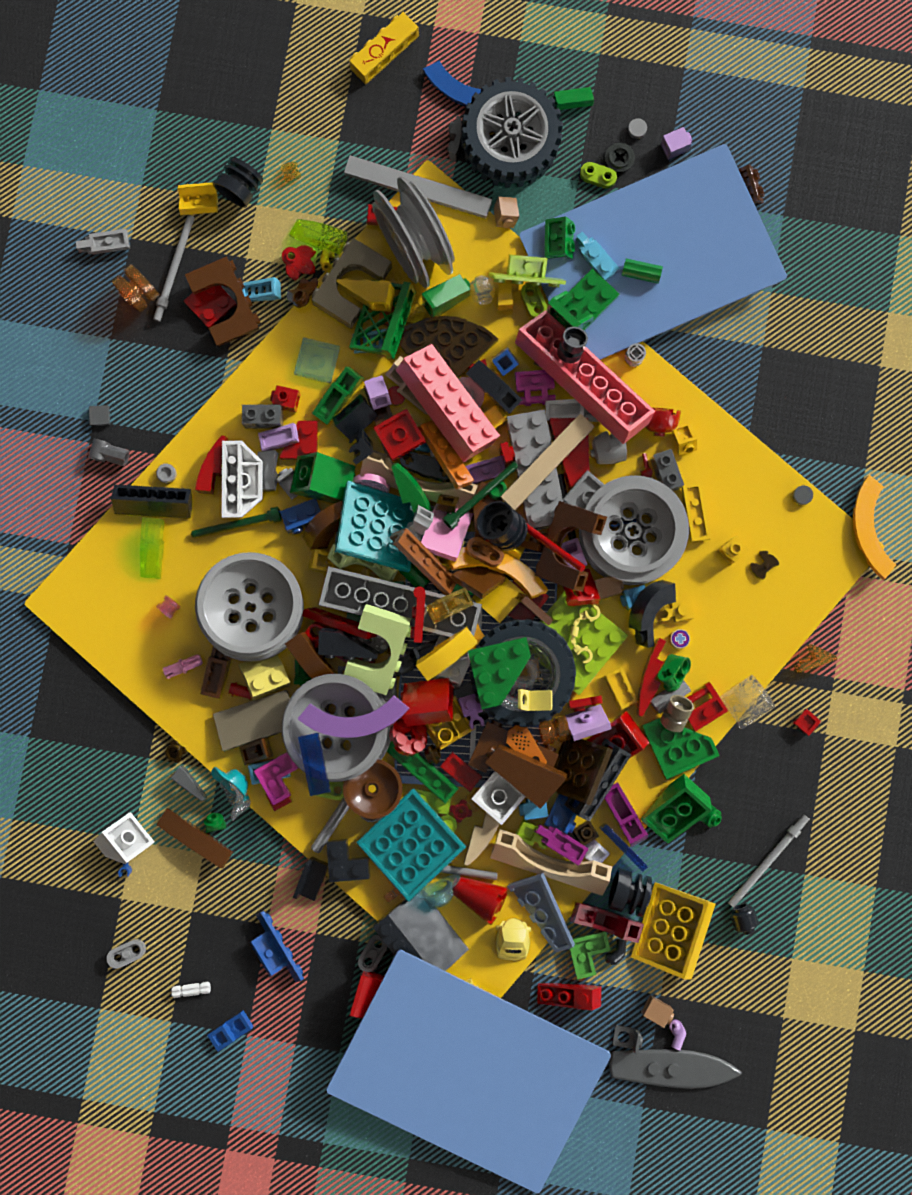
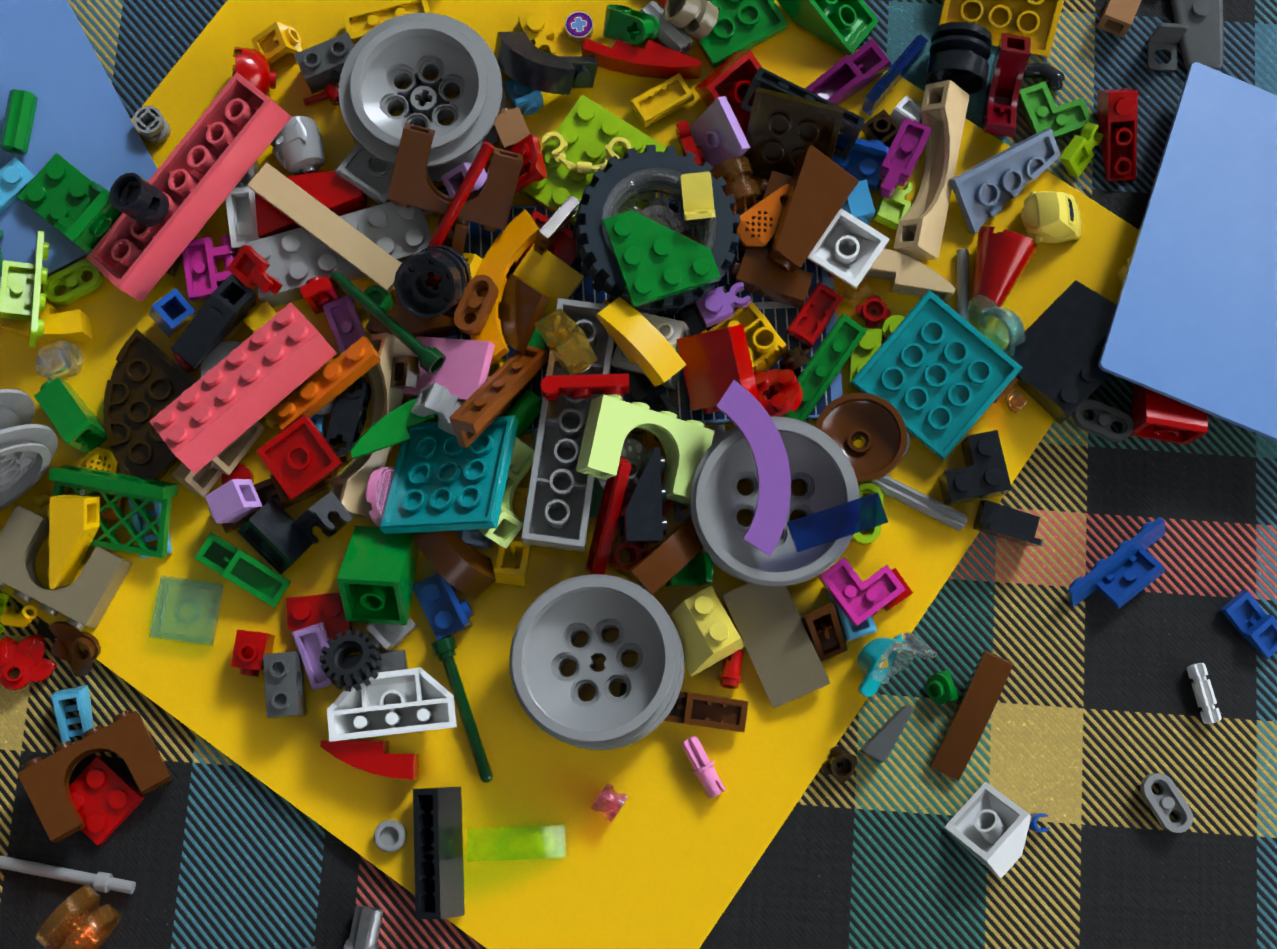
camera: 95 degrees left, 5 degrees down
(277, 449) = (340, 649): none -> black tyre
(522, 412) = (250, 270): none -> red plate
(558, 967) = (1079, 151): none -> lime plate

